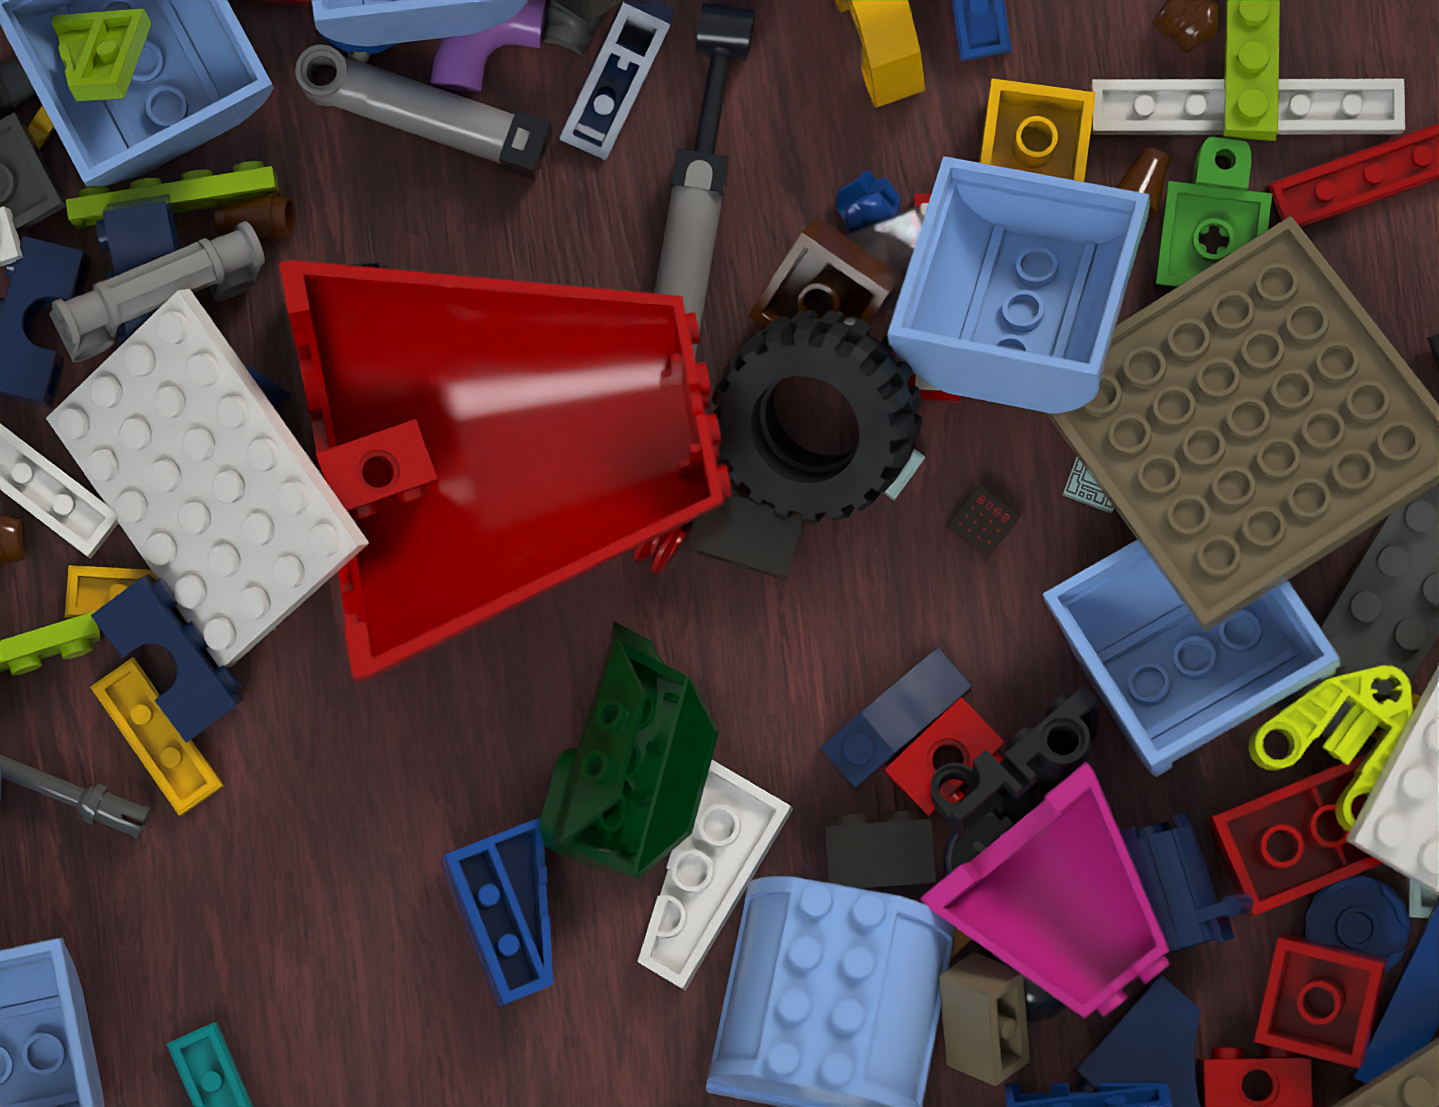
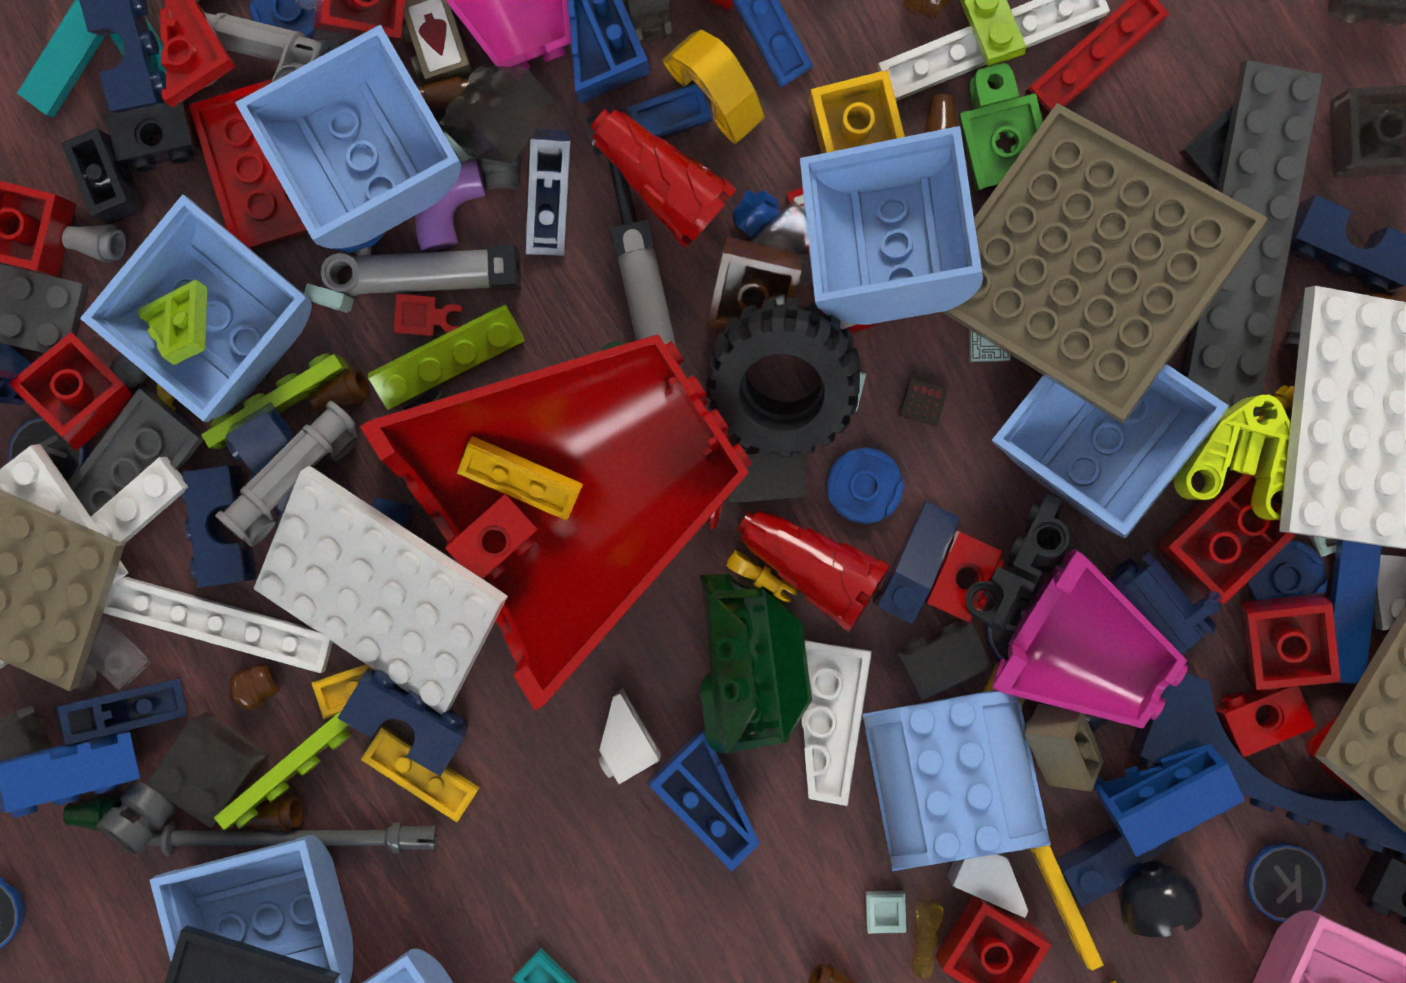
camera: 25 degrees left, 5 degrees up
(293, 96) = (329, 298): none -> light aqua tile
(395, 162) = (418, 315): none -> red plate
(407, 226) = (446, 357): none -> lime plate
(435, 795) = (626, 741): none -> white slope
(440, 408) = (519, 478): none -> yellow tile
(691, 658) = (746, 567): none -> yellow piece
(773, 123) = (671, 183): none -> red cone
(777, 685) = (830, 574): none -> red cone
(807, 39) = (672, 111): none -> blue tile
(867, 597) = (864, 485): none -> blue tile

